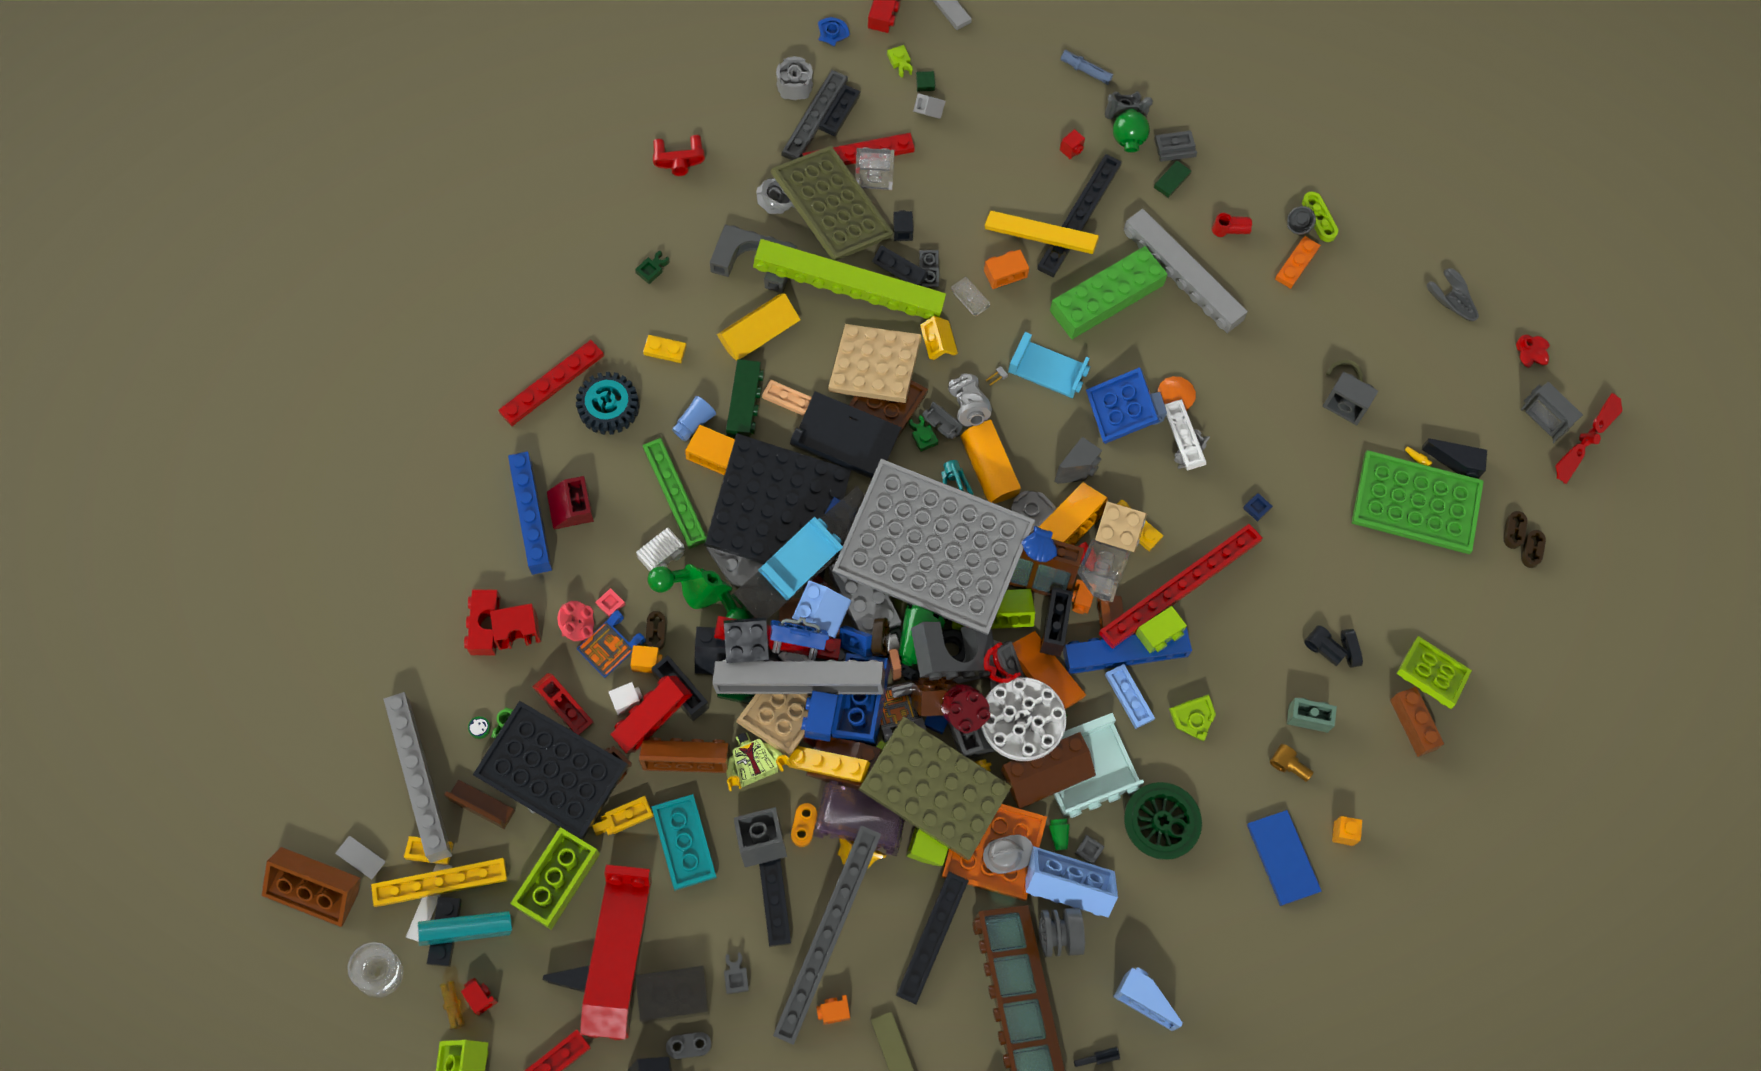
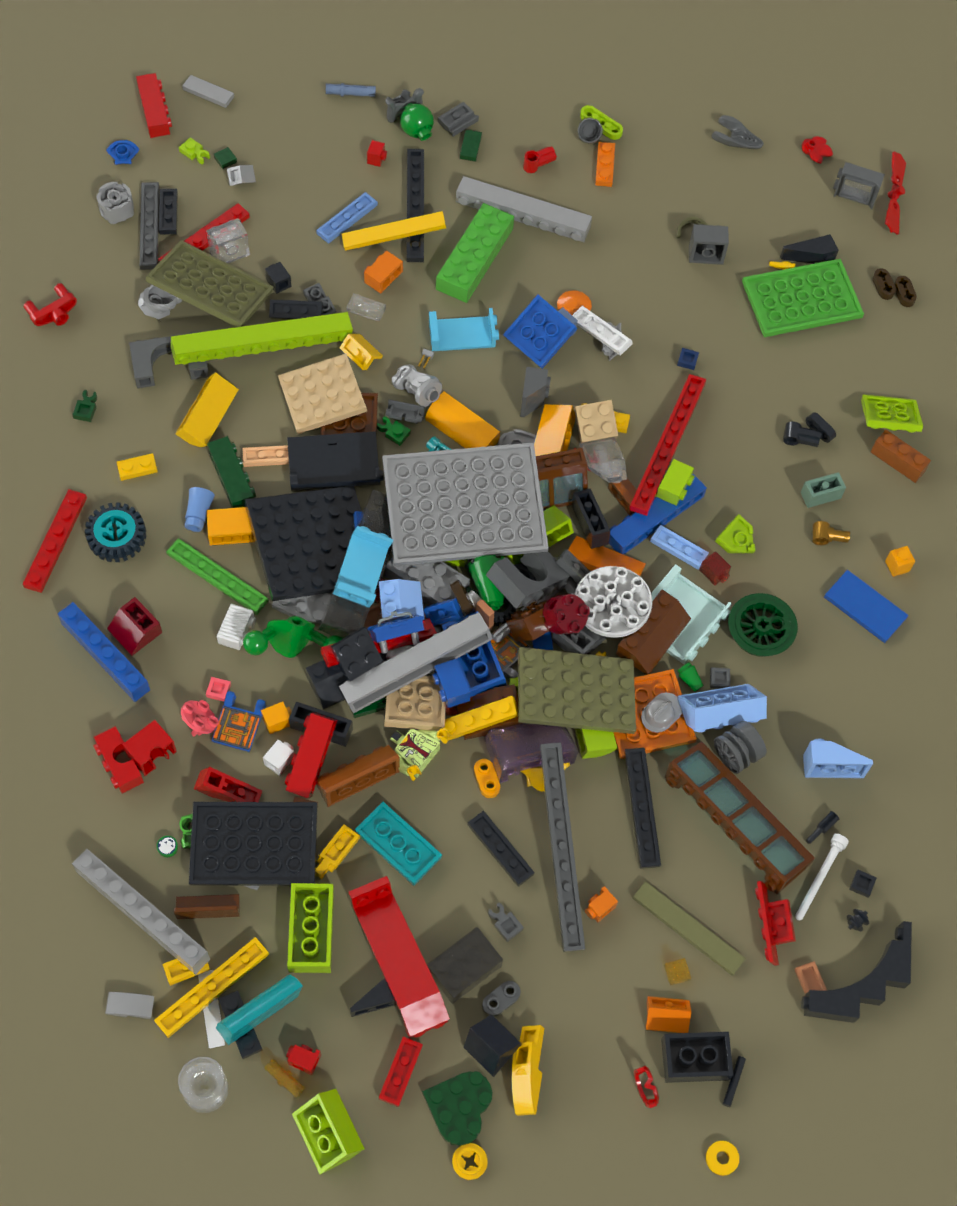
camera: 30 degrees left, 5 degrees down
(310, 886) = (100, 1052): dark orange slope -> none
(661, 631) = (274, 689): dark brown beam -> none
(760, 837) = (460, 803): dark grey brick -> none
(993, 651) = (568, 574): red helmet -> none
(1006, 196) = (346, 217): none -> medium blue tile
(1040, 545) = (548, 460): blue animal -> none
(1081, 597) = (599, 489): orange brick -> none
(1152, 737) = (715, 569): none -> clear red brick

